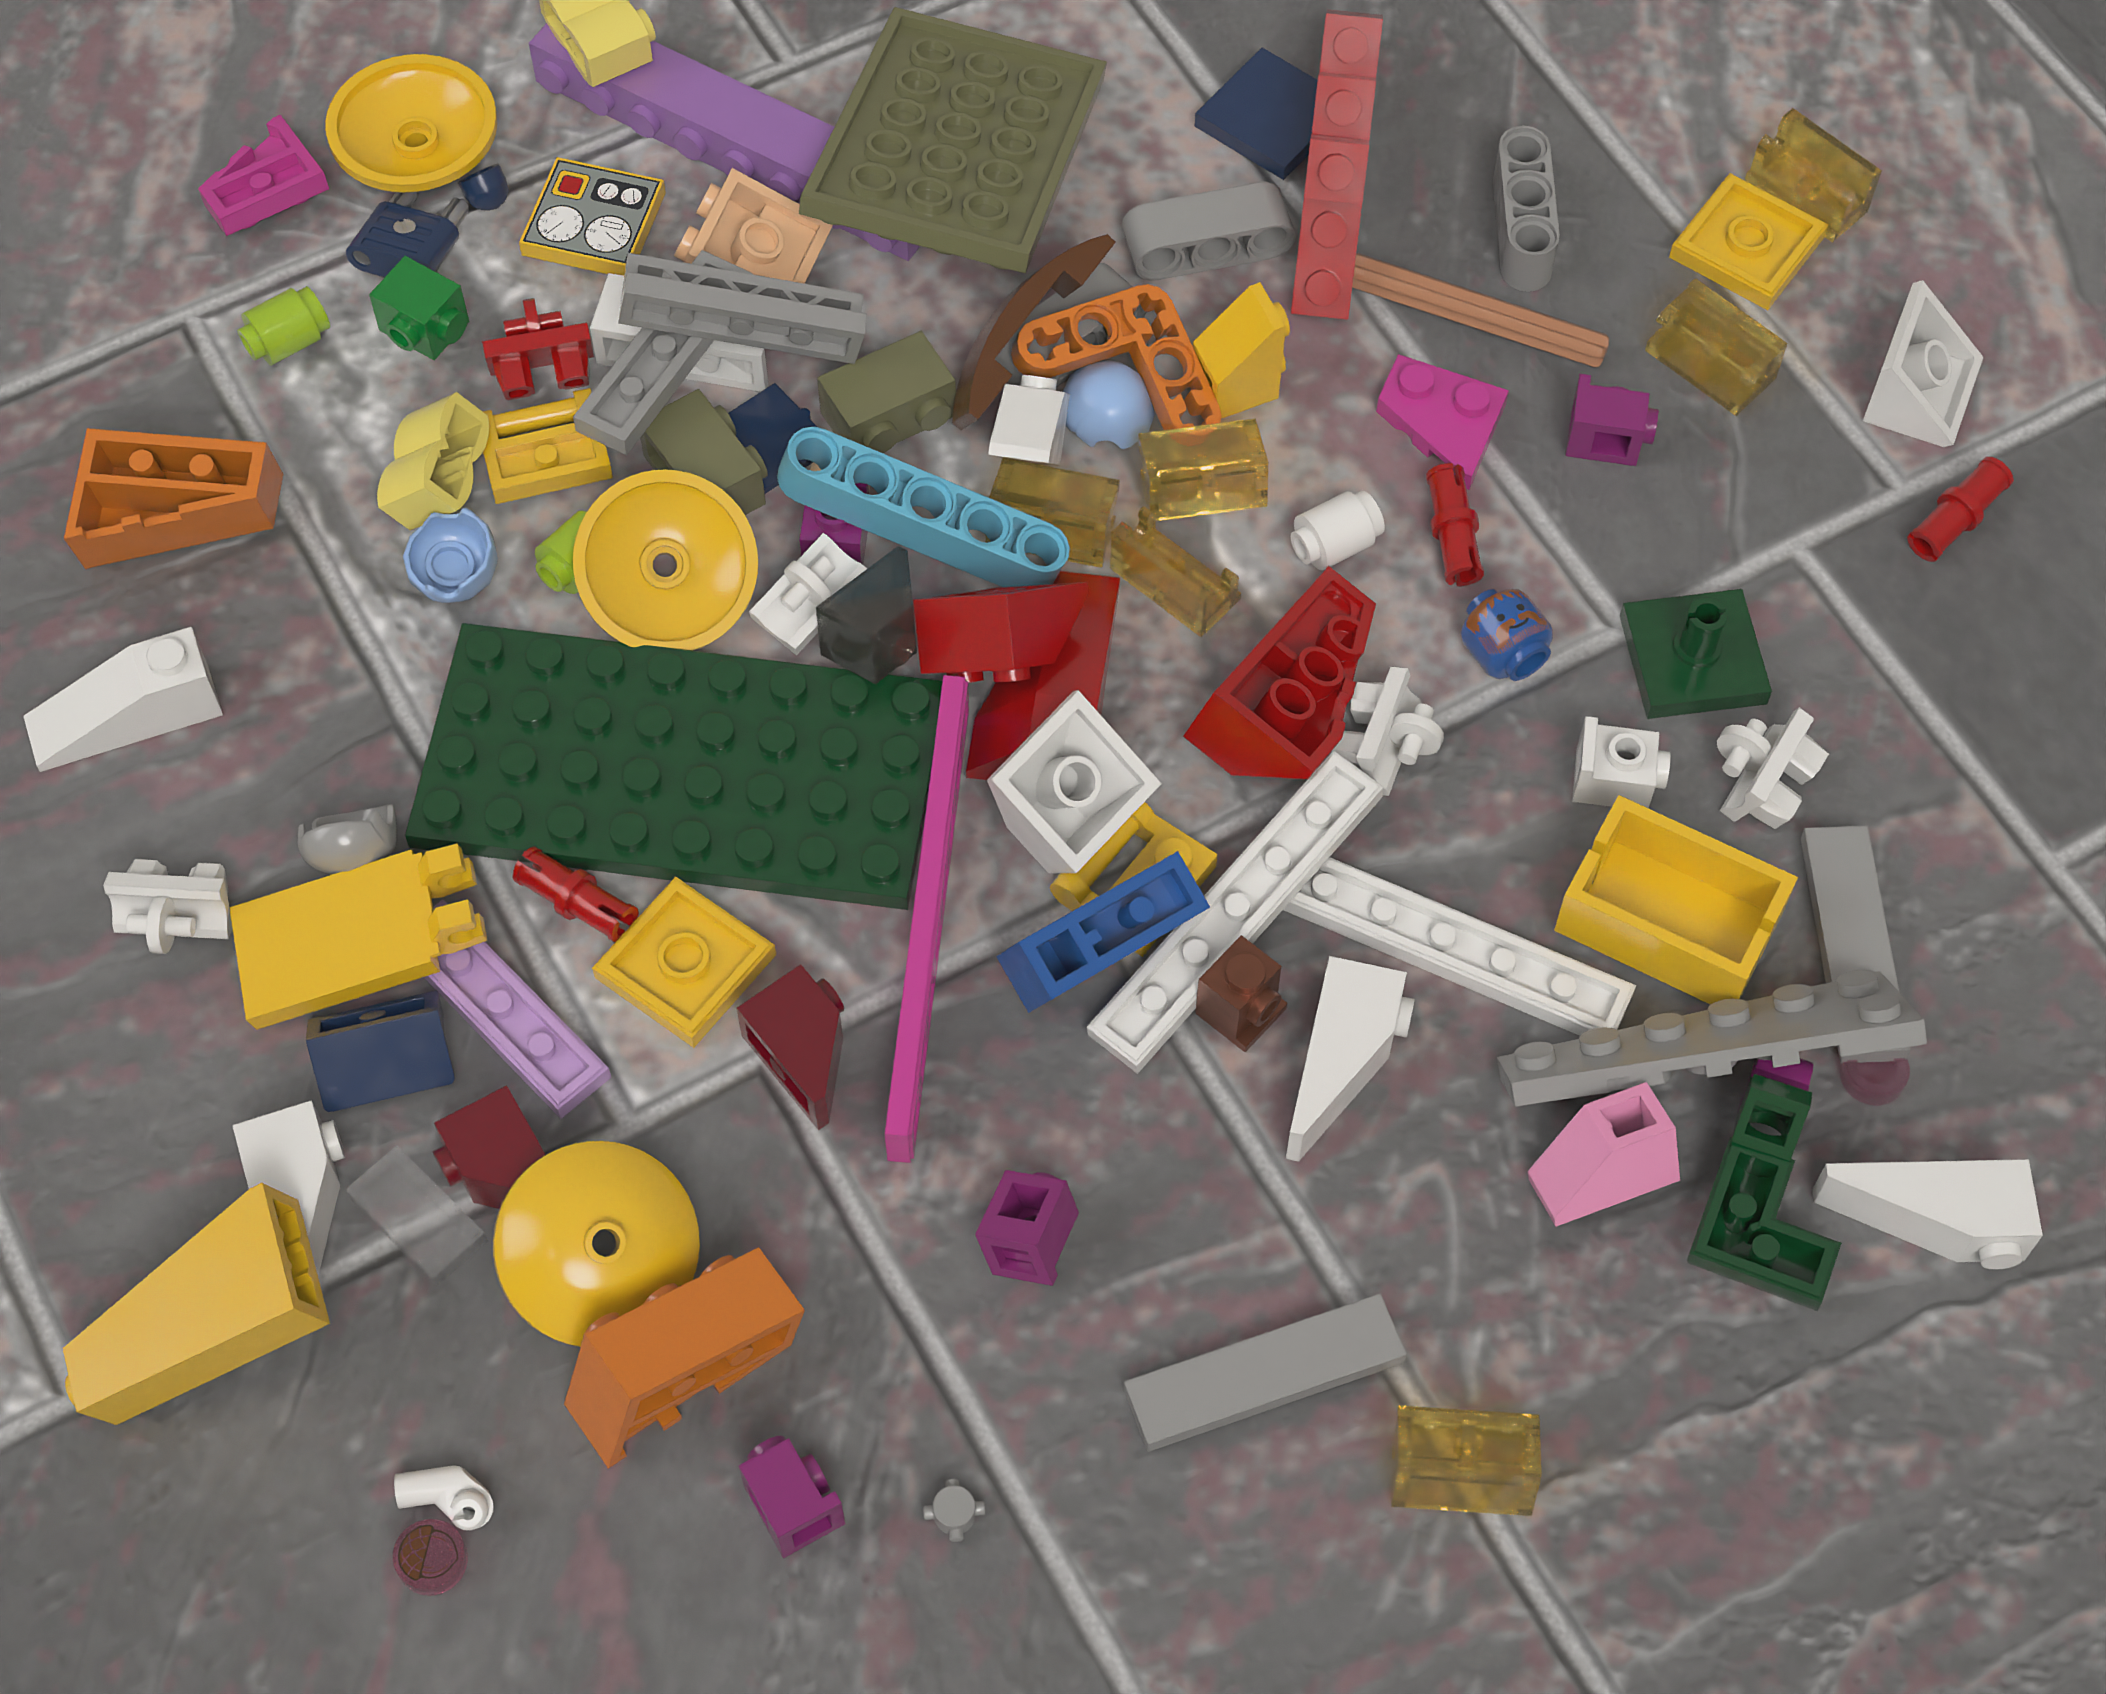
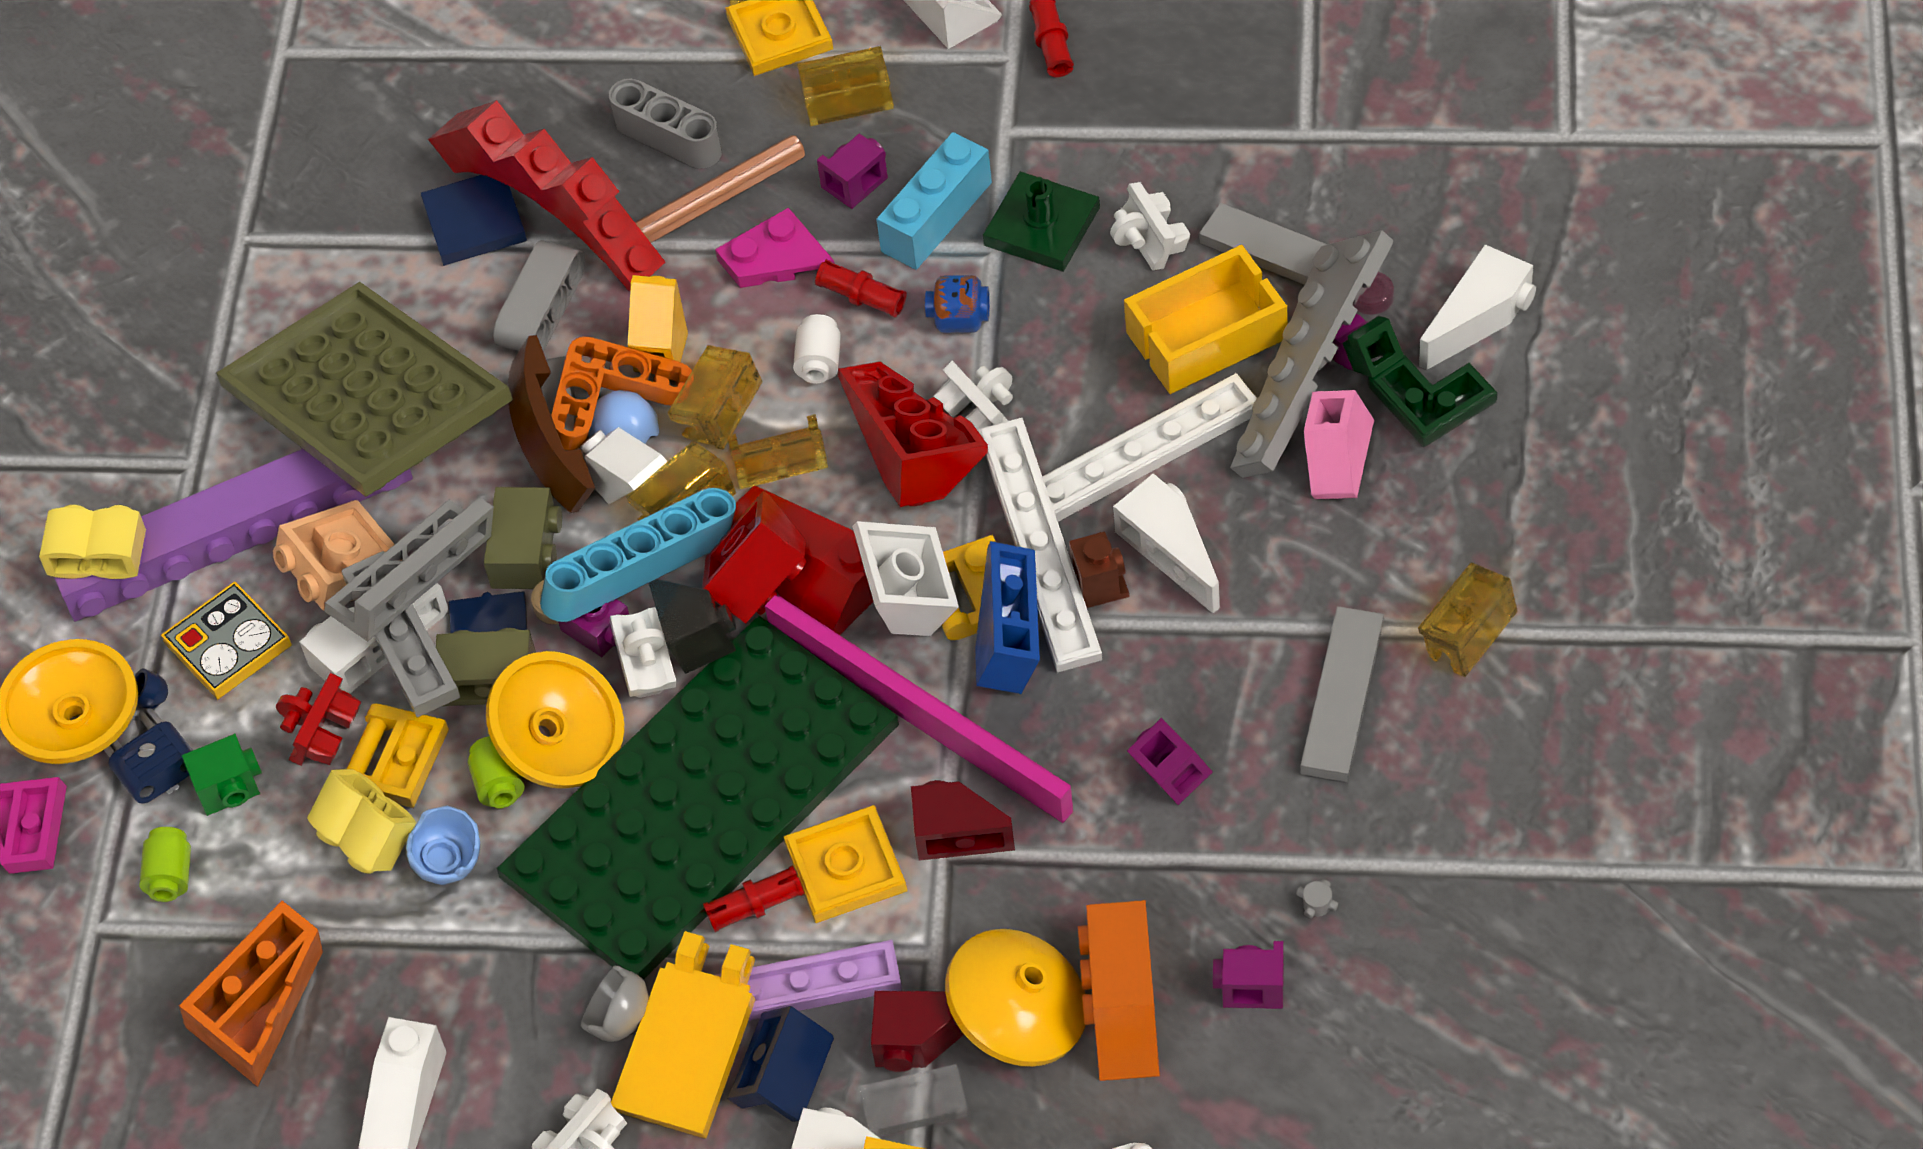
camera: 50 degrees left, 5 degrees down
(1618, 763) = (1089, 300): white brick -> none
(1627, 525) = (934, 200): none -> medium azure brick

